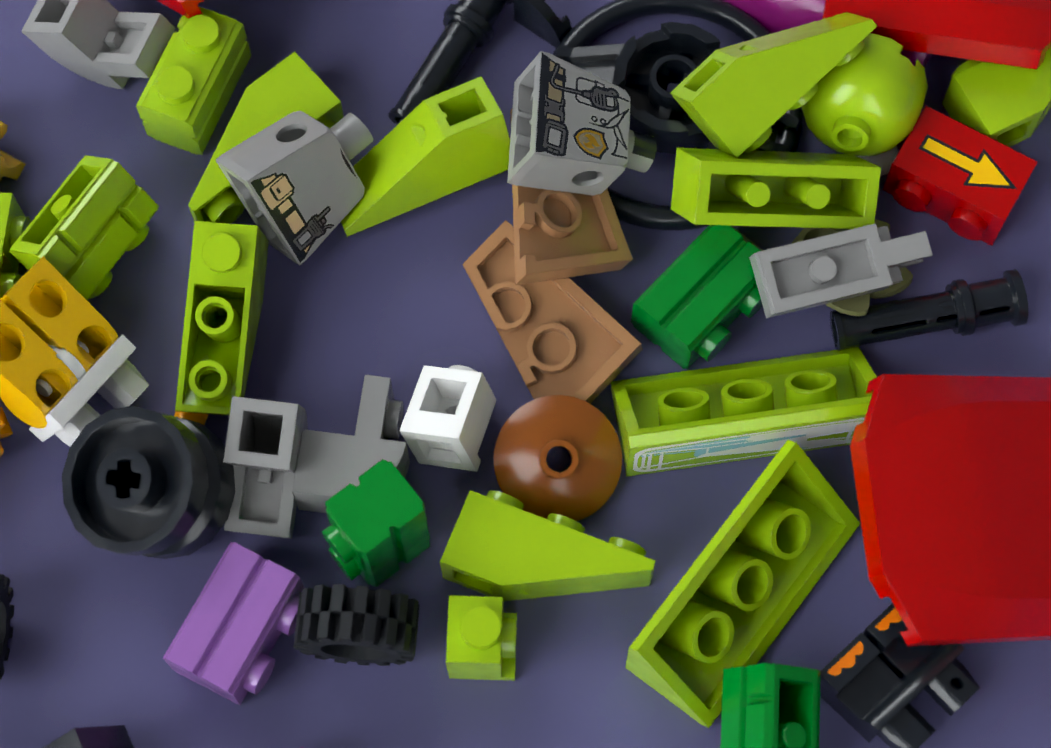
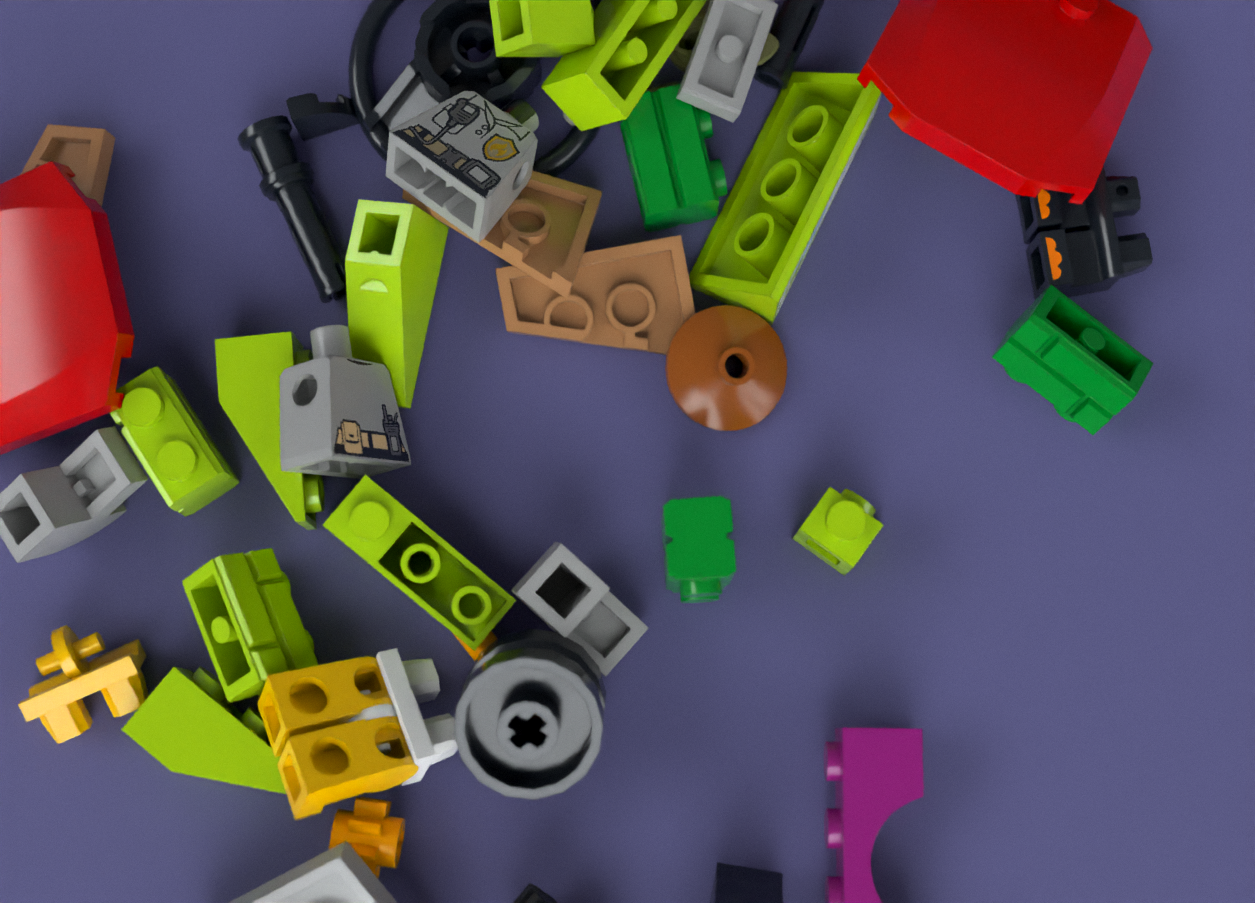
camera: 55 degrees left, 10 degrees up
(236, 624) = (694, 715): medium lavender brick -> none
(334, 460) = (630, 530): light grey brick -> none
(357, 625) = (769, 619): black tyre -> none
(448, 417) = (610, 426): white brick -> none
(525, 556) = (785, 455): lime slope -> none
(743, 585) = (928, 296): lime slope -> none

